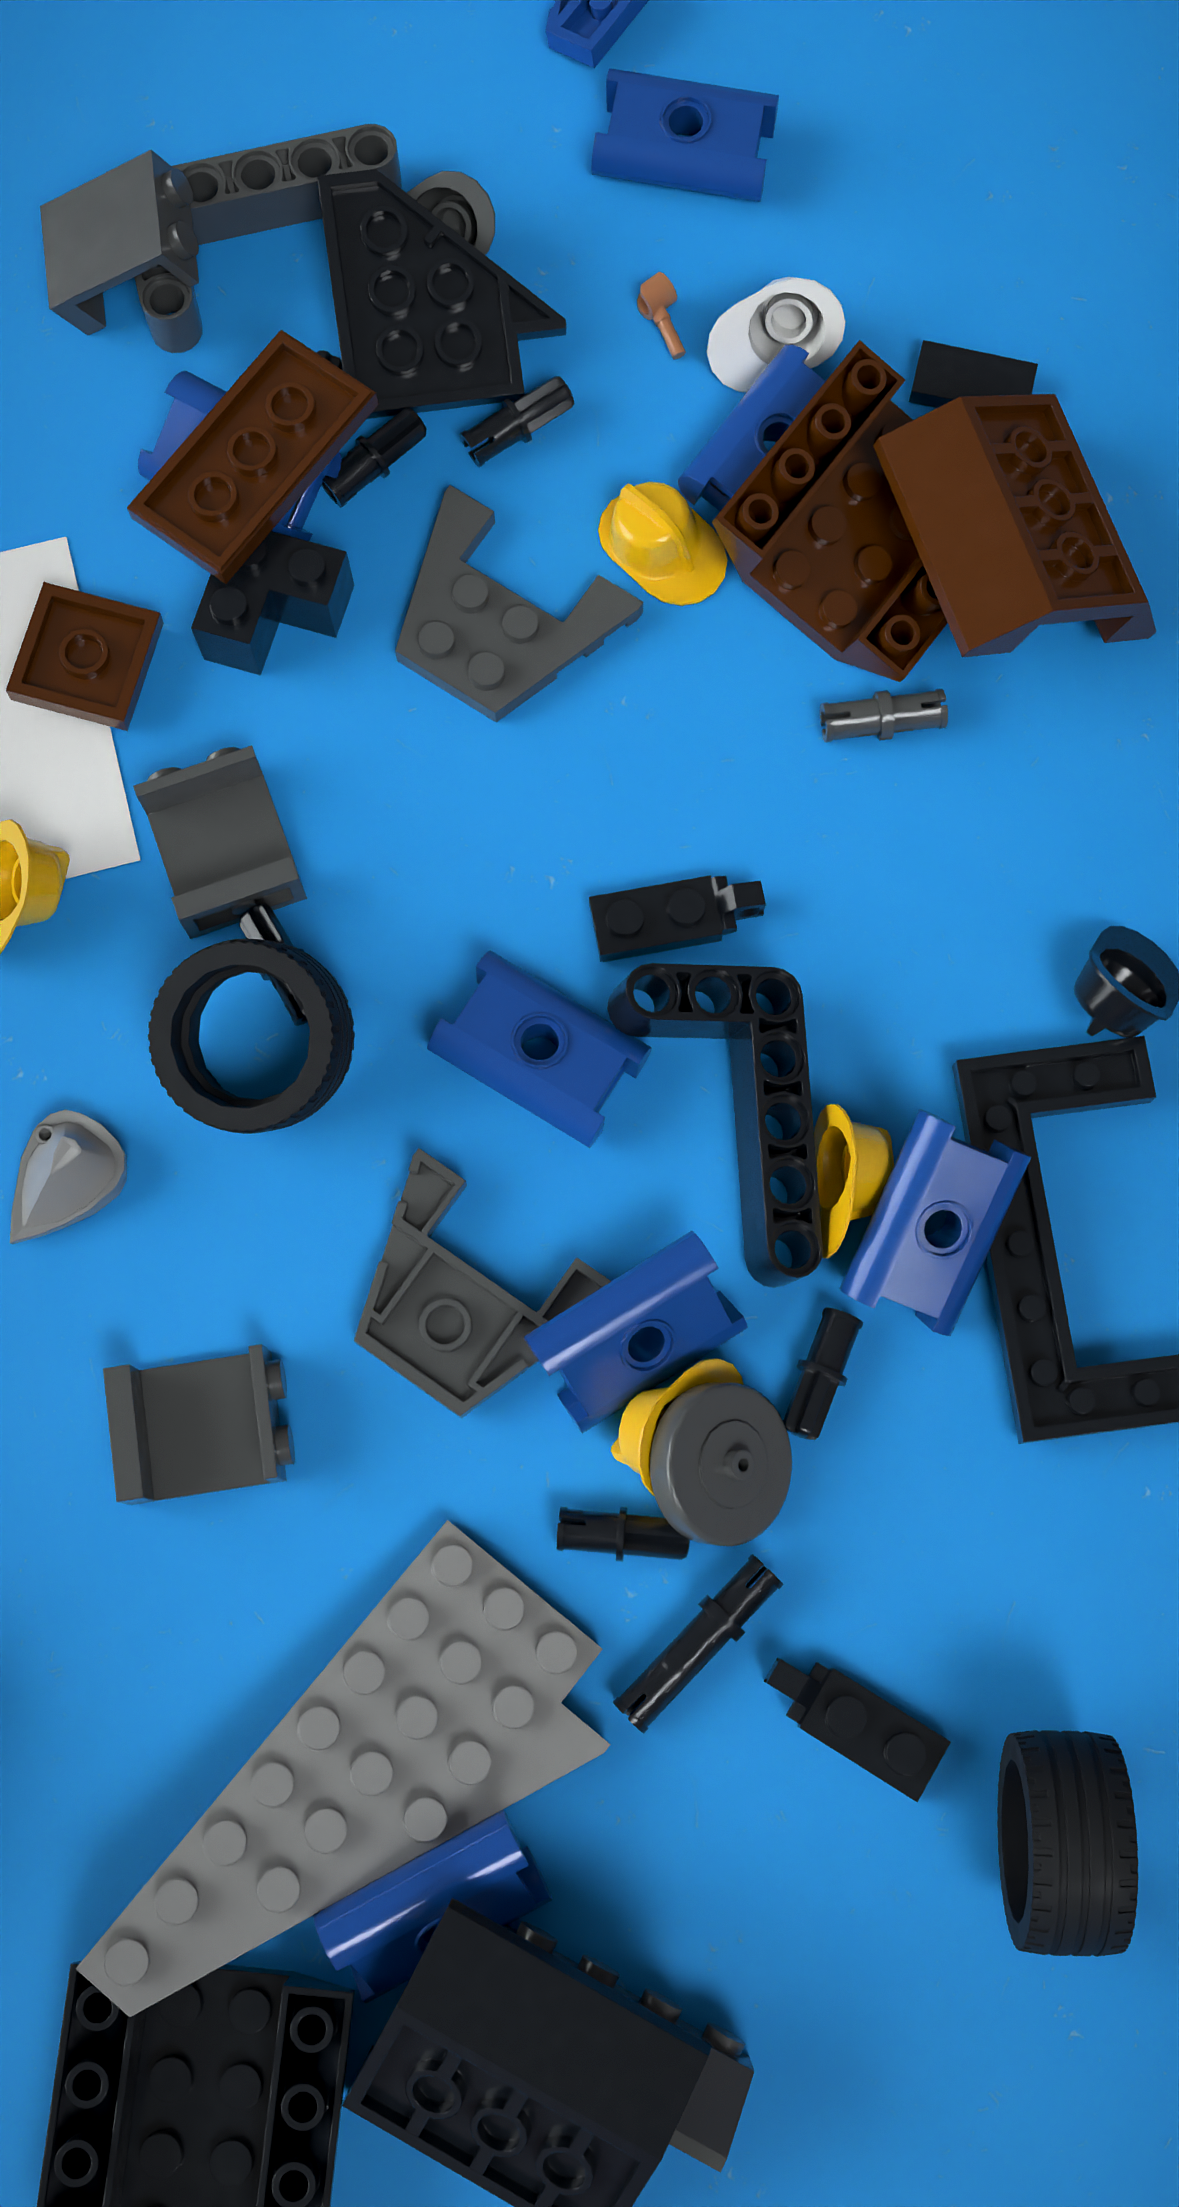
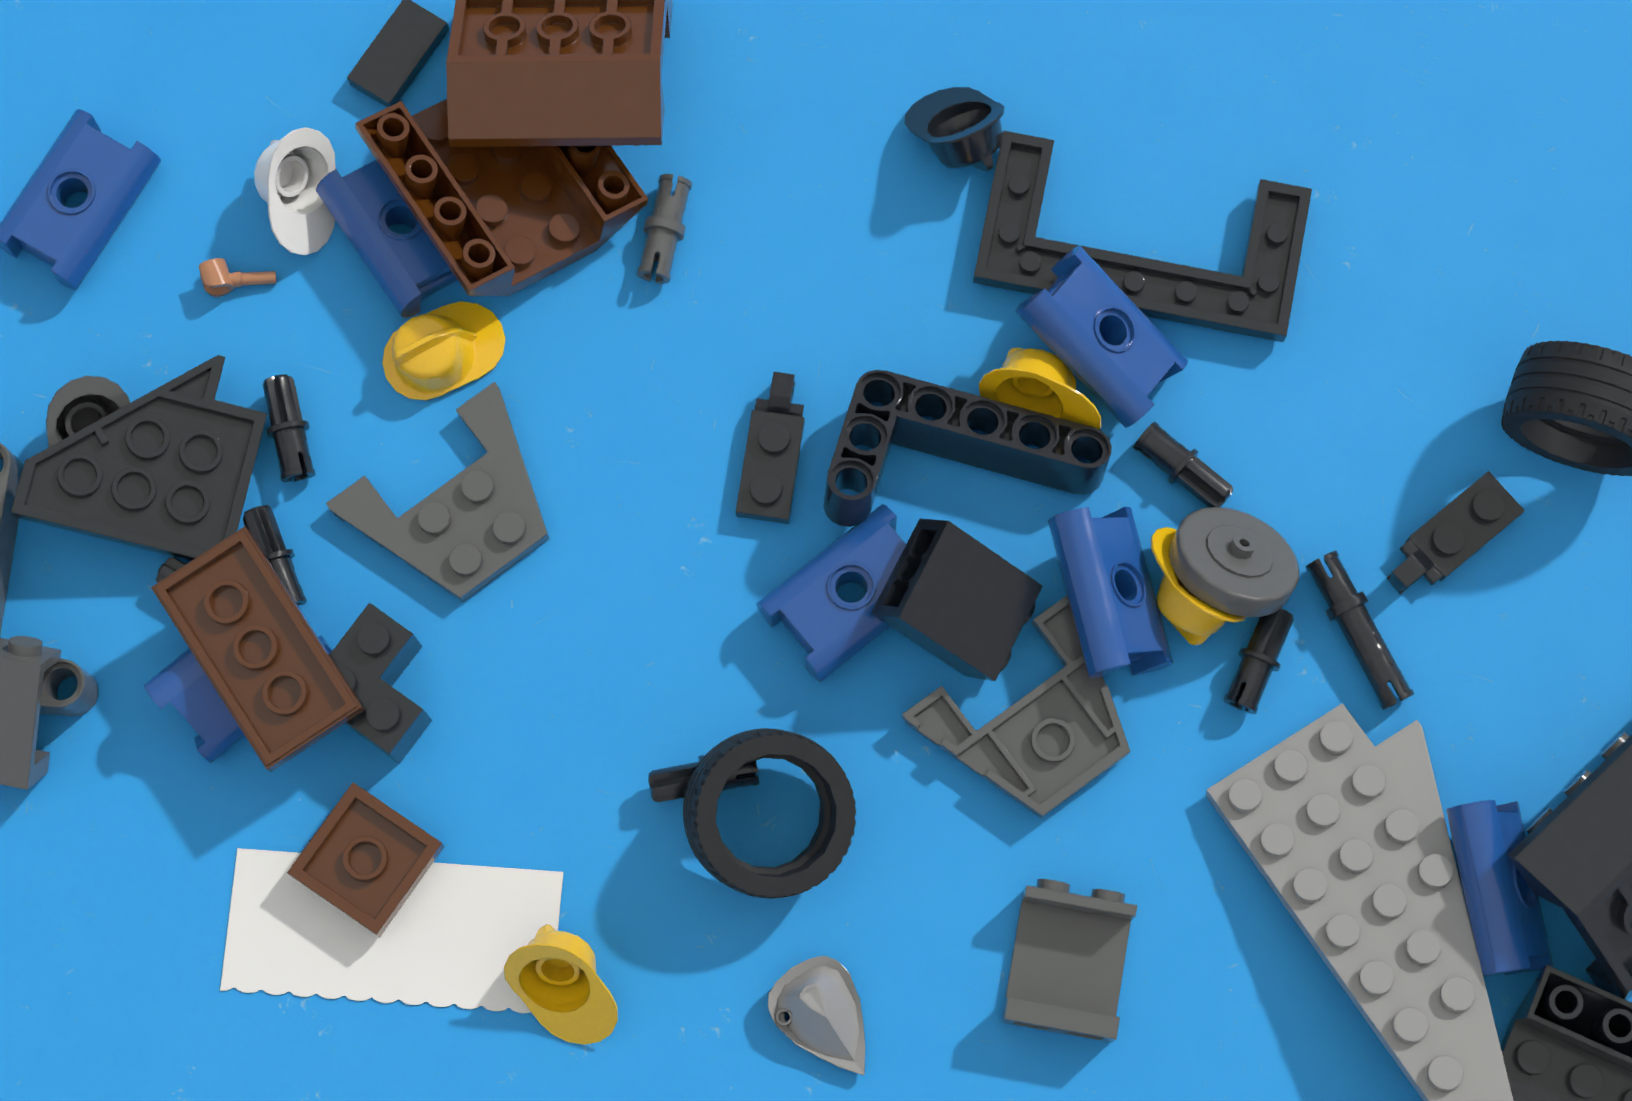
camera: 70 degrees left, 0 degrees up
(220, 840) = (577, 796): dark grey panel -> none
(561, 1160) = (957, 599): none -> black brick

